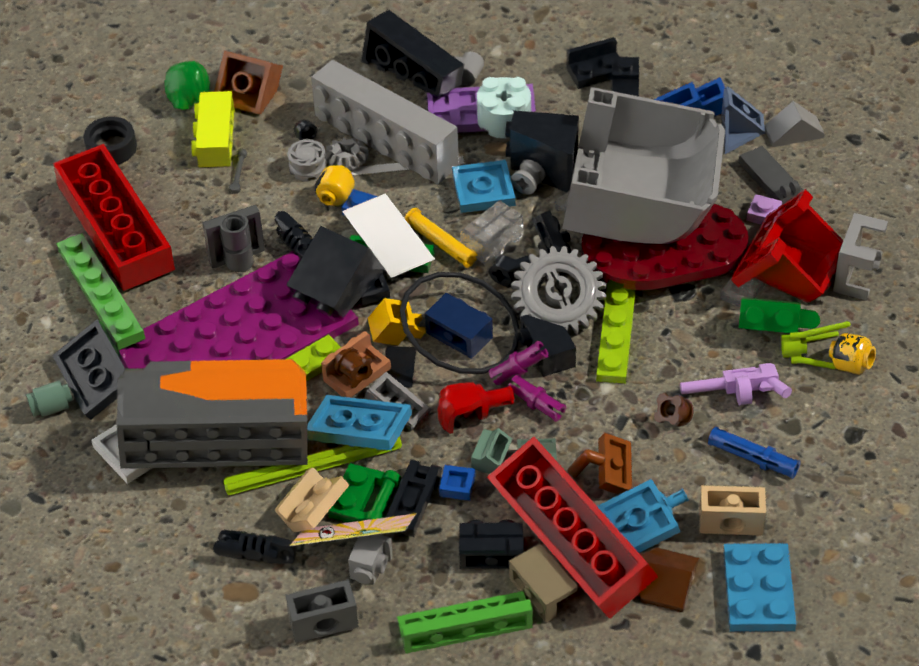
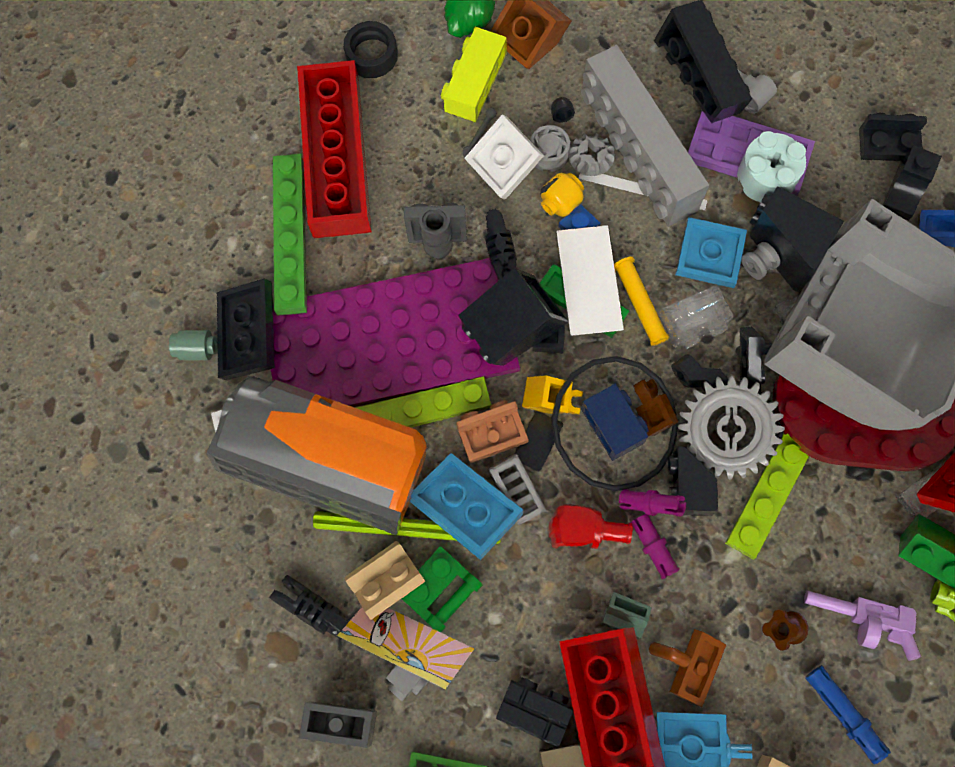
camera: 25 degrees right, 25 degrees up
(270, 174) = (504, 157): none -> white plate
(353, 366) = (485, 438): reddish brown brick -> none
(415, 494) = (486, 612): black plate -> none
(457, 482) = (533, 617): blue plate -> none
(490, 303) = (655, 409): none -> reddish brown plate
(490, 450) = (583, 593): sand green piece -> none

